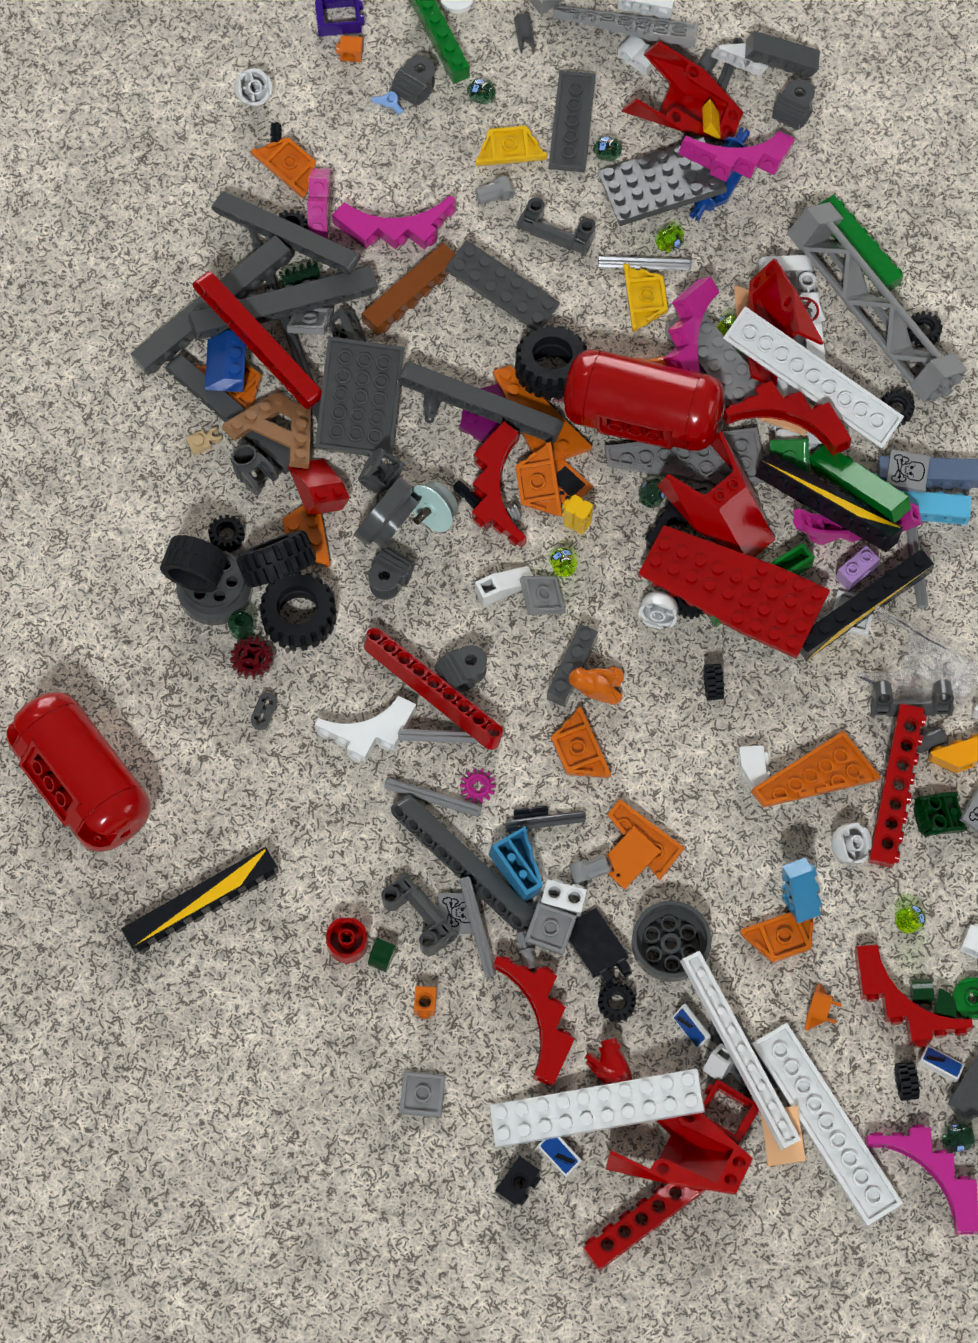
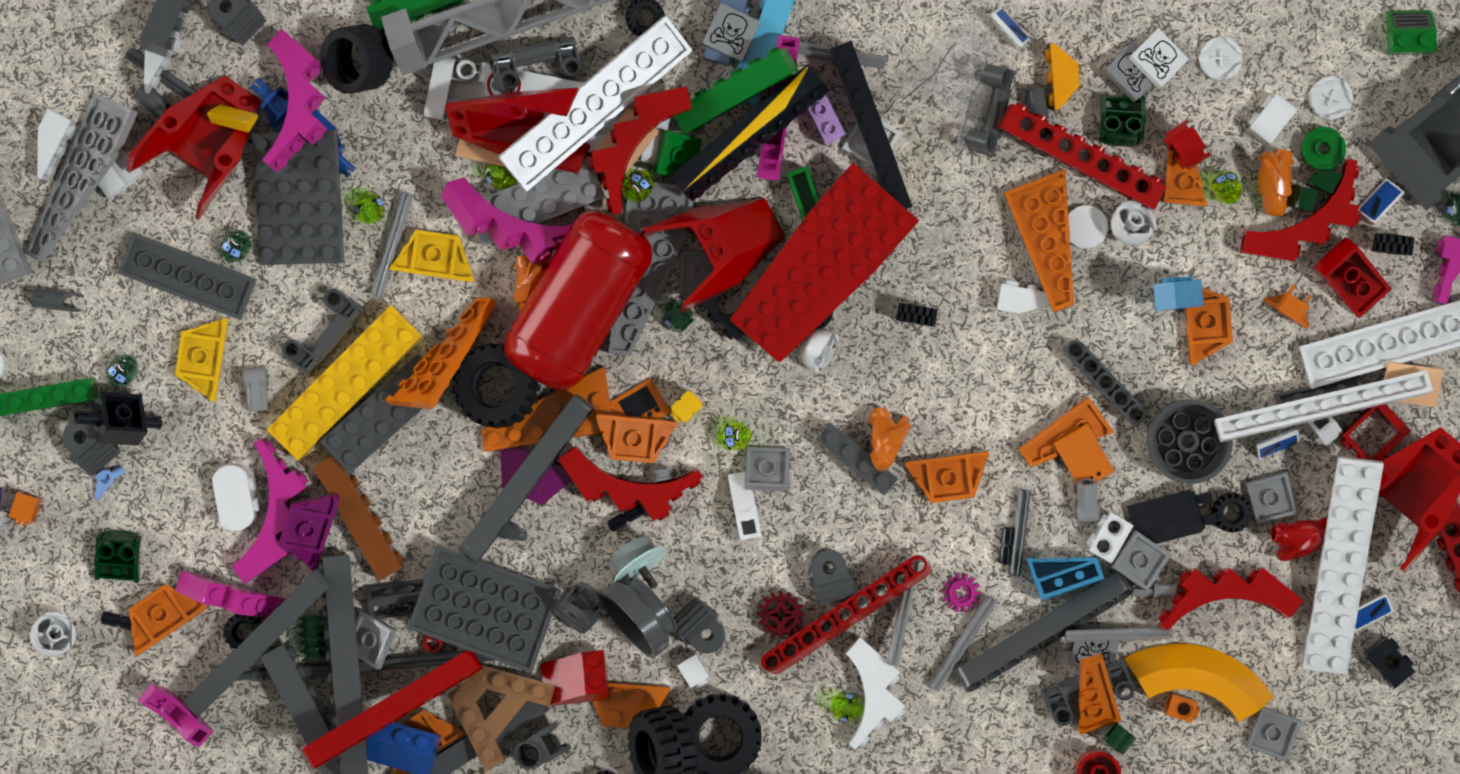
camera: 80 degrees left, 20 degrees up
(217, 181) = (170, 707): none -> dark pink arch
(314, 369) = (428, 647): none -> red bush
(329, 122) = (117, 555): none -> dark green slope
(349, 578) = (694, 671): none -> white brick
(350, 710) = (846, 707): none -> clear neon green head
(391, 250) = (308, 528): none -> magenta wing
(401, 195) = (235, 497): none -> white brick
(409, 922) = (1096, 698): none -> orange wing
(425, 635) = (780, 623): none -> dark red gear
(442, 91) = (118, 418): none -> black brick
(463, 1016) = (1200, 670): none -> light orange brick
(522, 252) = (345, 382): none -> yellow brick
(562, 316) = (441, 362): none -> orange wing
(639, 1036) = (1271, 498): none -> light grey tile
(706, 850) = (1114, 387): none -> dark grey beam
(754, 431) = (638, 185): none -> clear neon green head
(789, 192) = (338, 63): none -> black tyre
(835, 809) = (1087, 226): none -> white tile
(847, 350) = (505, 64): none -> dark grey piece
(863, 1055) = (1352, 277): none -> red slope
(908, 880) = (1183, 186): none -> orange wing
(930, 960) = (1275, 181): none -> orange animal
(936, 868) = (1186, 145): none -> red brick

